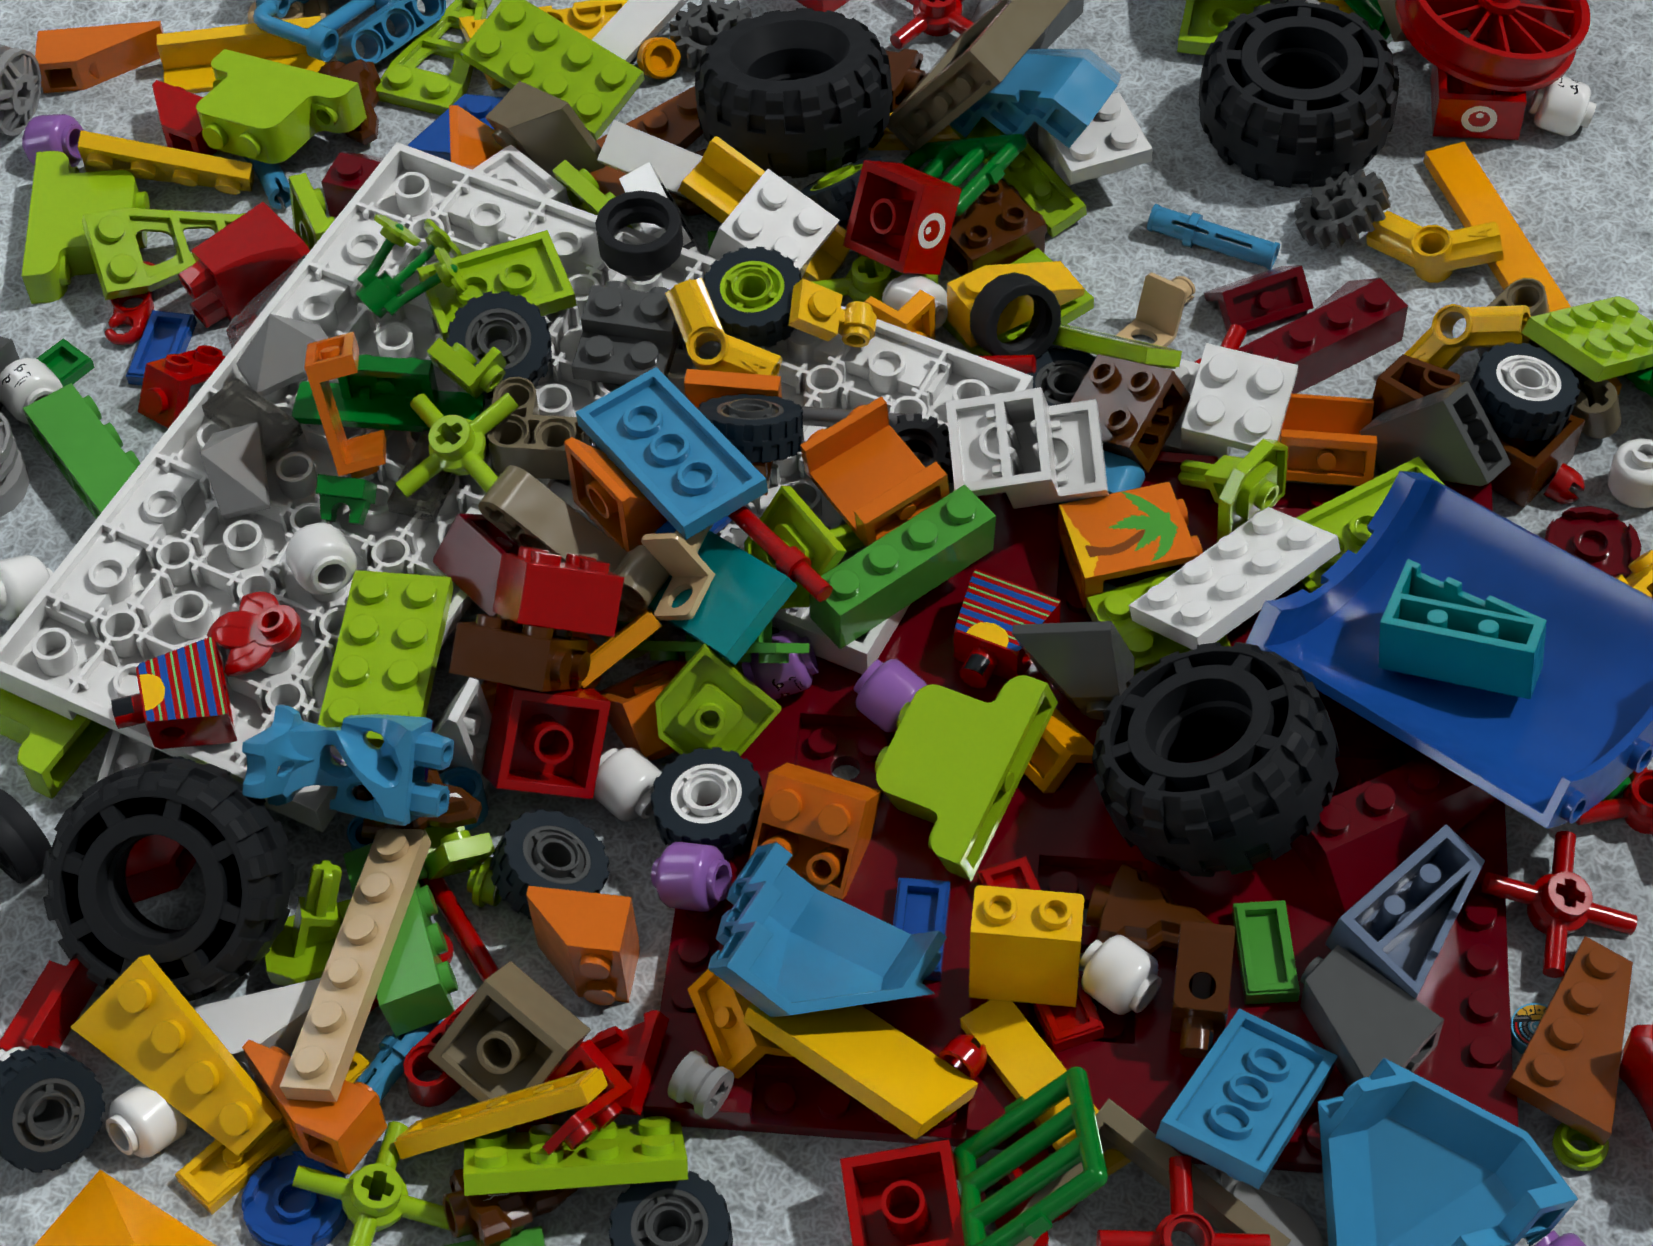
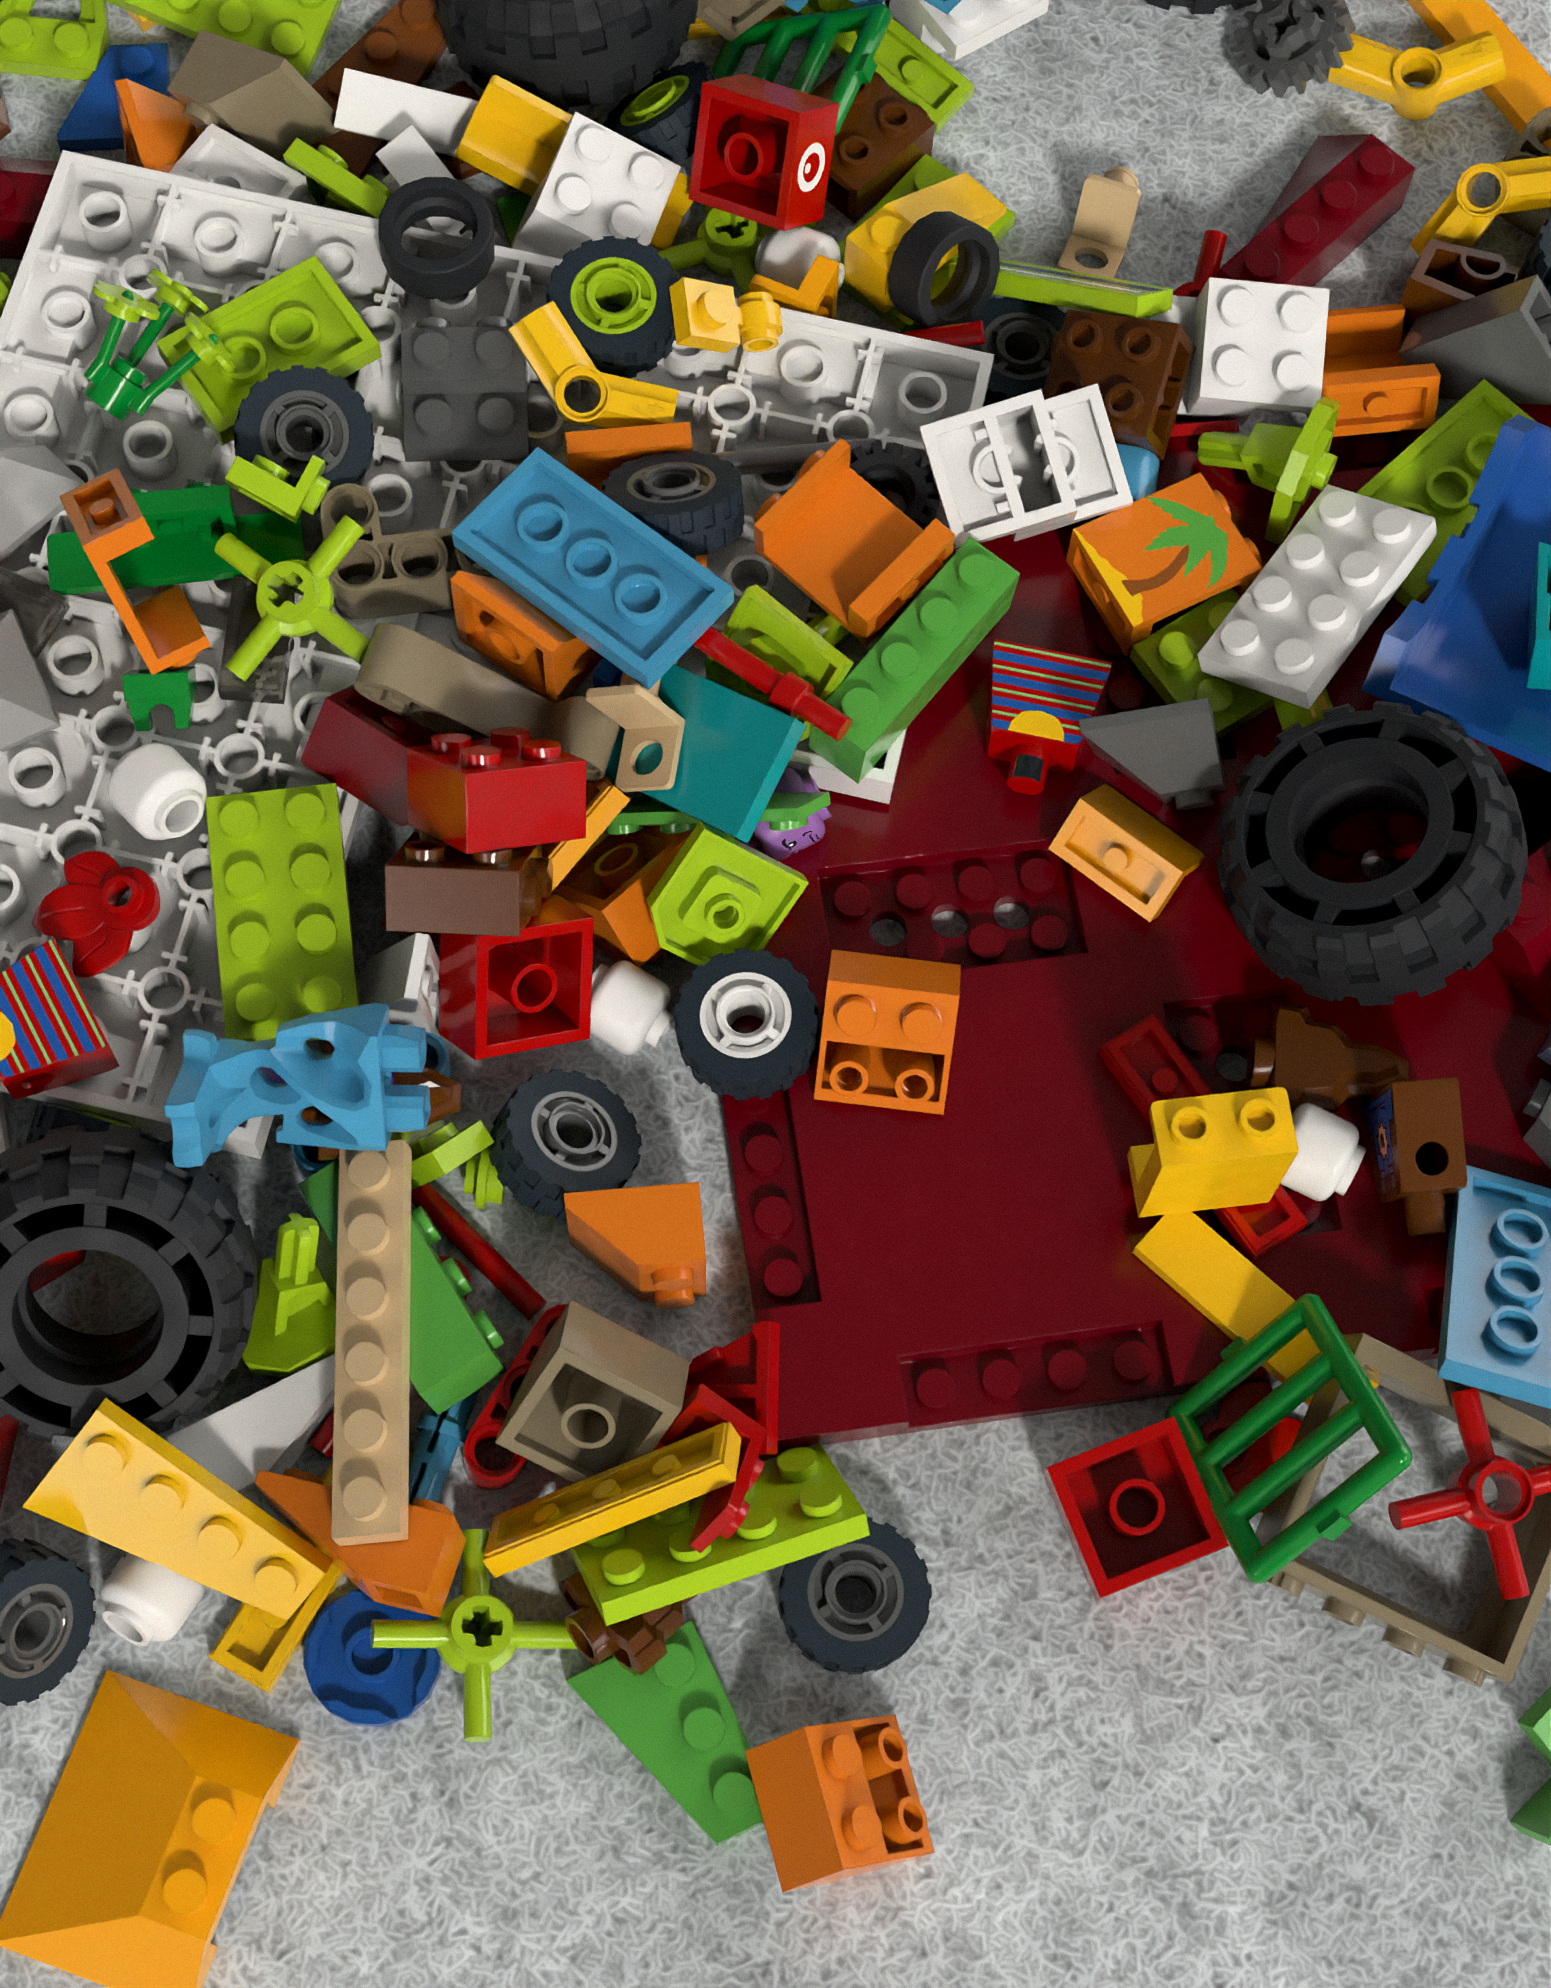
camera: 20 degrees left, 15 degrees up
(691, 876) = (755, 1128): medium lavender head -> none
(700, 1084) = (847, 1405): light grey wheel -> none
(722, 1016) = (869, 1301): light orange panel -> none
(809, 951) = (943, 1207): dark azure panel -> none
(871, 1064) = (1033, 1324): yellow tile -> none
(885, 690) = (932, 829): medium lavender head -> none
(923, 908) = (1049, 1135): blue tile -> none
(962, 763) = (1050, 910): lime brick -> none
(965, 1055) = (1152, 1298): red hinge -> none
(1167, 221) = (1206, 112): dark azure pin -> none
(1263, 297) = (1221, 178): dark red panel -> none
(1265, 952) = (1461, 1049): bright green tile -> none

